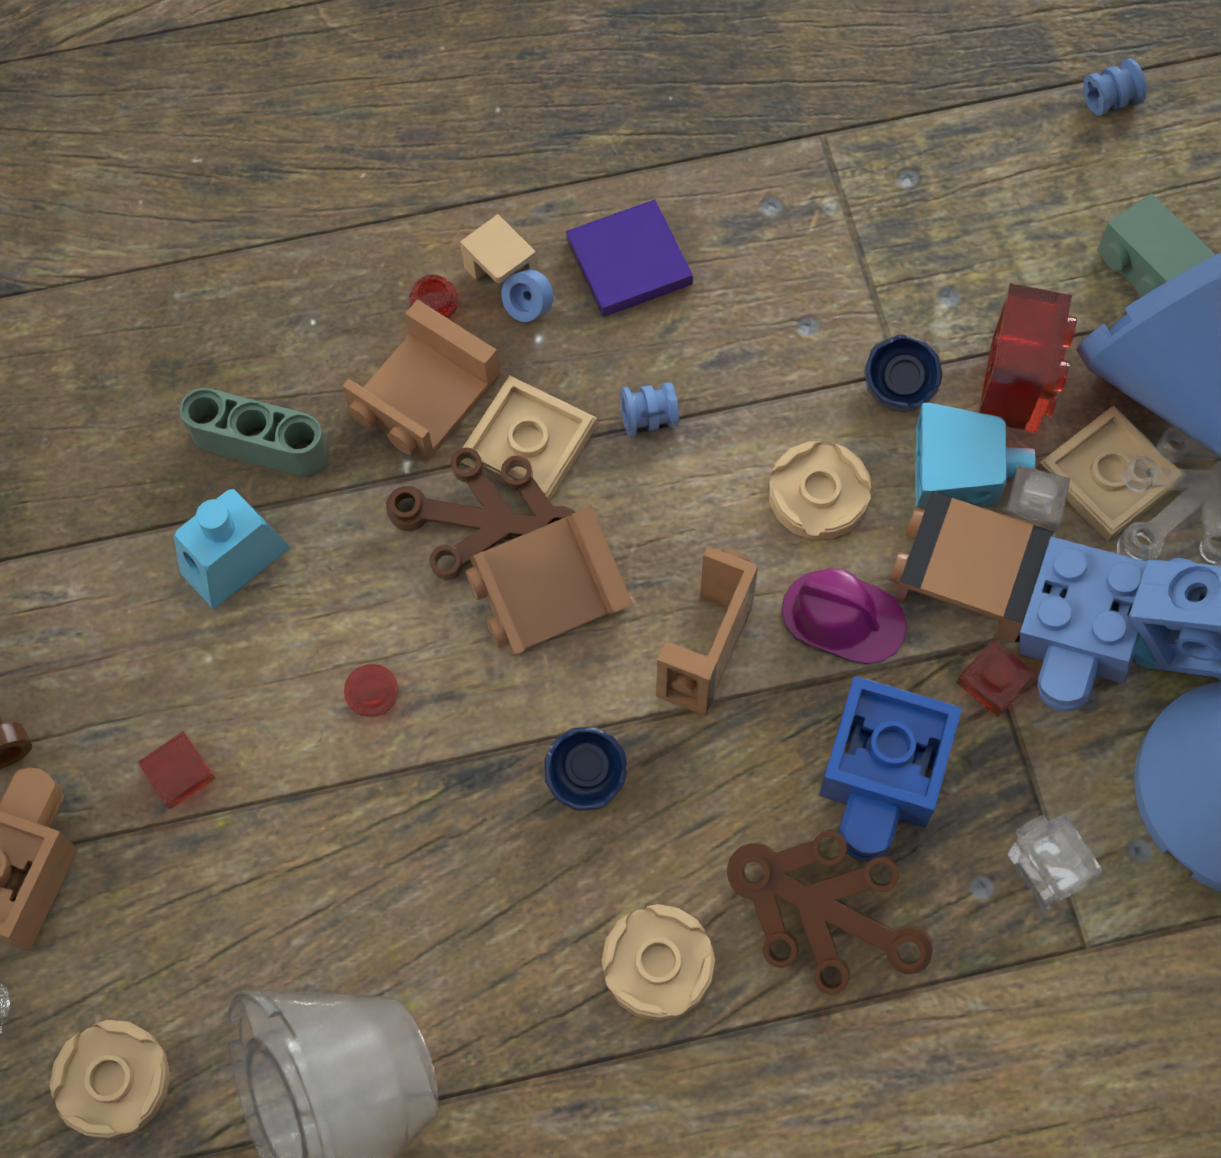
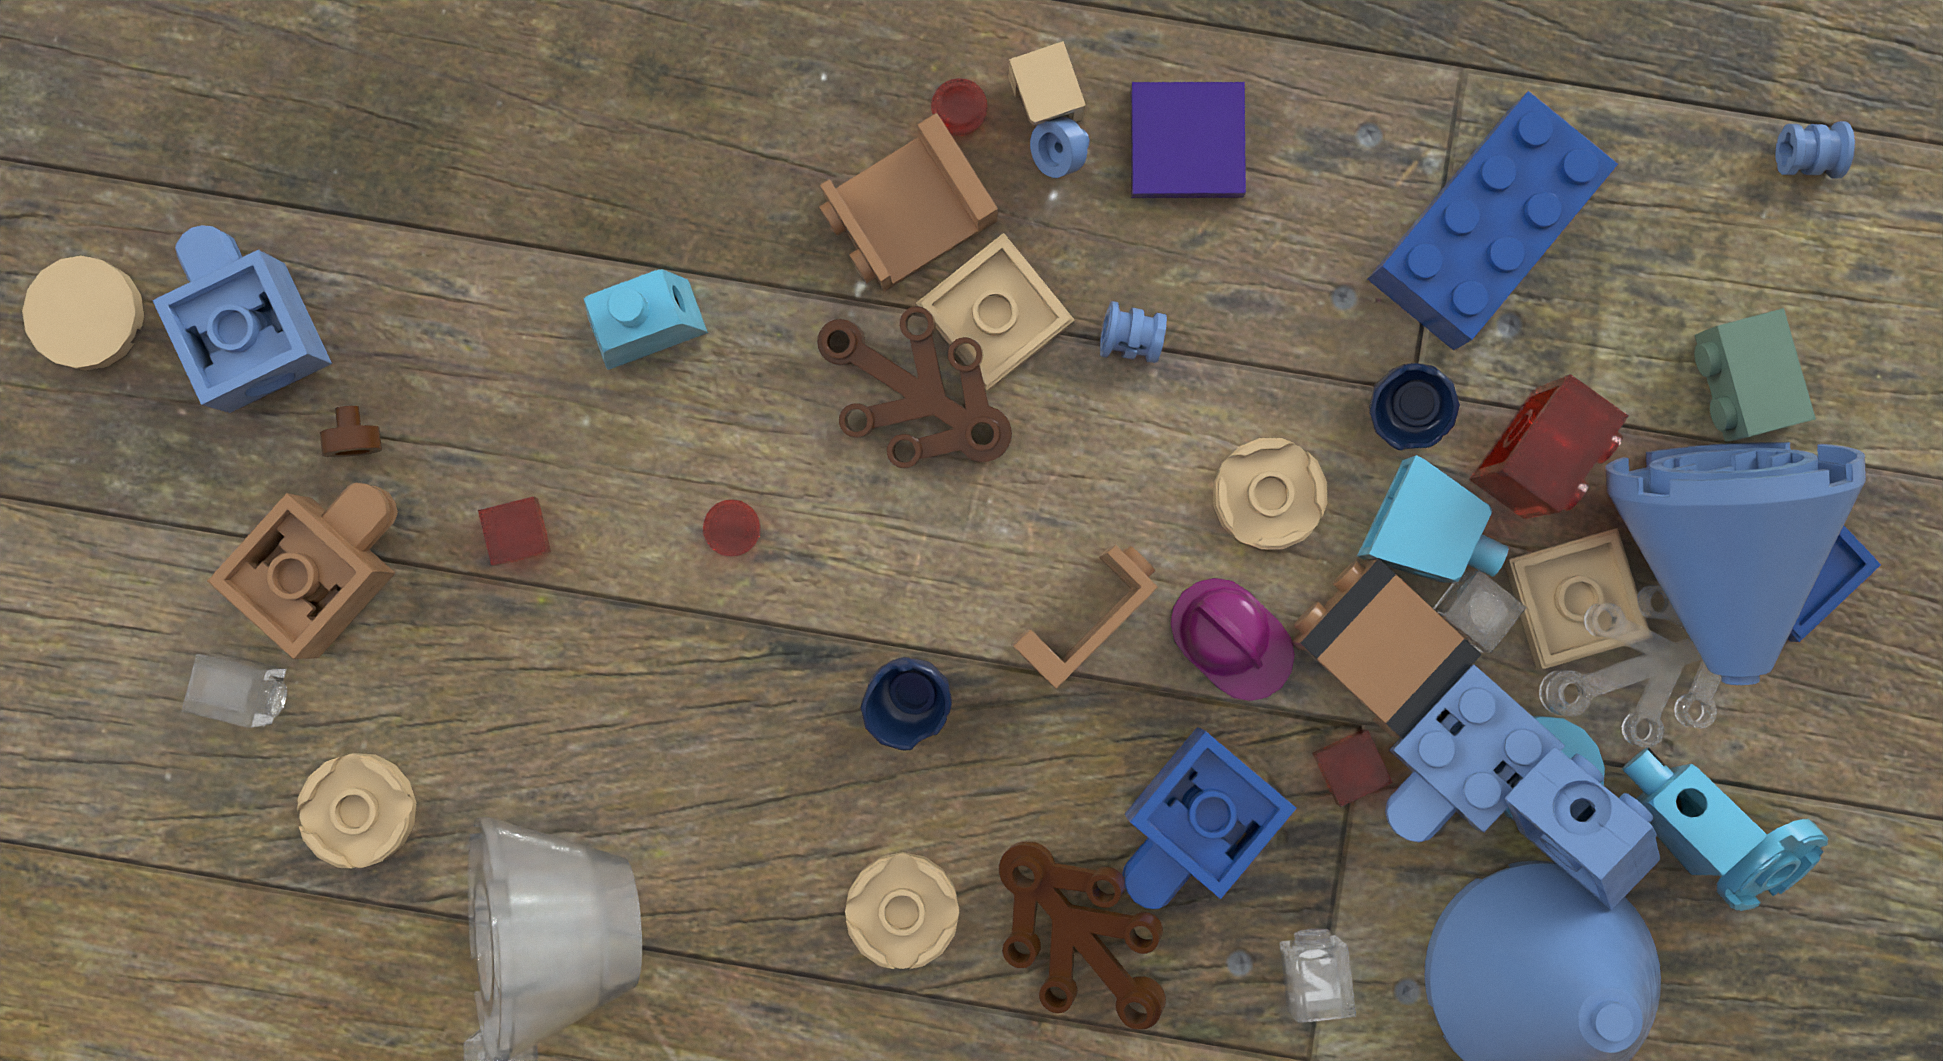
camera: 20 degrees right, 20 degrees up
(239, 416) = (699, 170): sand green beam -> none
(548, 581) = (947, 488): medium nougat panel -> none
(894, 223) = (1492, 221): none -> blue brick

